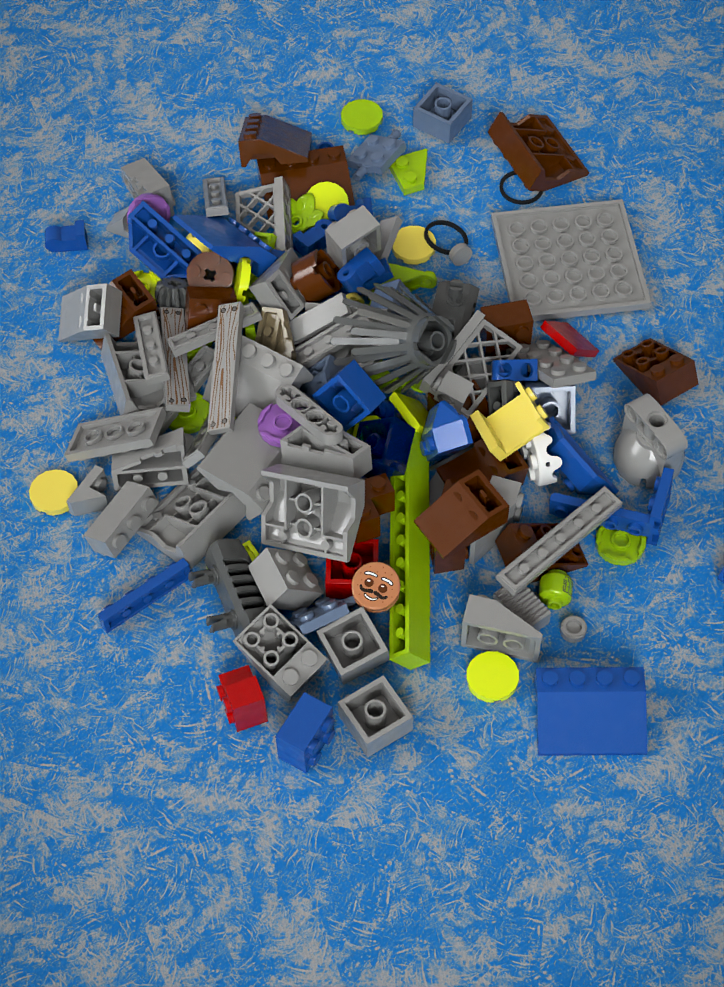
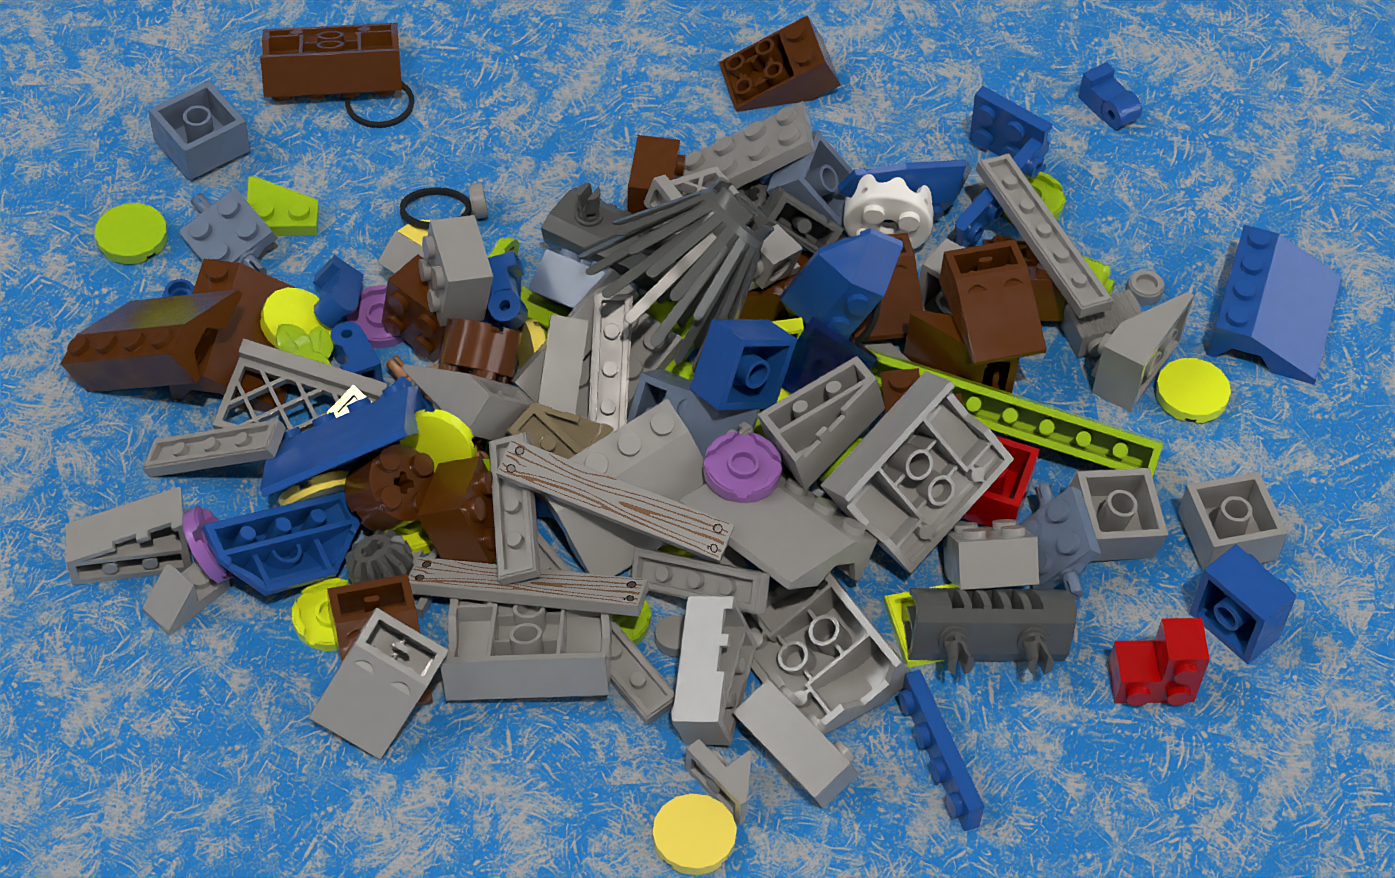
camera: 75 degrees left, 5 degrees down
(66, 237) = (166, 686): blue leg -> none
(115, 434) = (643, 703): light grey plate -> none
(151, 348) = (501, 605): light grey tile -> none
(280, 652) = (1119, 591): light grey slope -> none
(290, 398) = (765, 419): light grey beam -> none
(376, 587) = (1053, 446): nougat head -> none
(512, 424) = (852, 198): light yellow panel -> none
(515, 370) = (756, 183): blue leg -> none
(569, 339) = (702, 130): red tile -> none
(571, 260) = (548, 94): light grey plate -> none
(648, 443) = (917, 102): light grey piece -> none

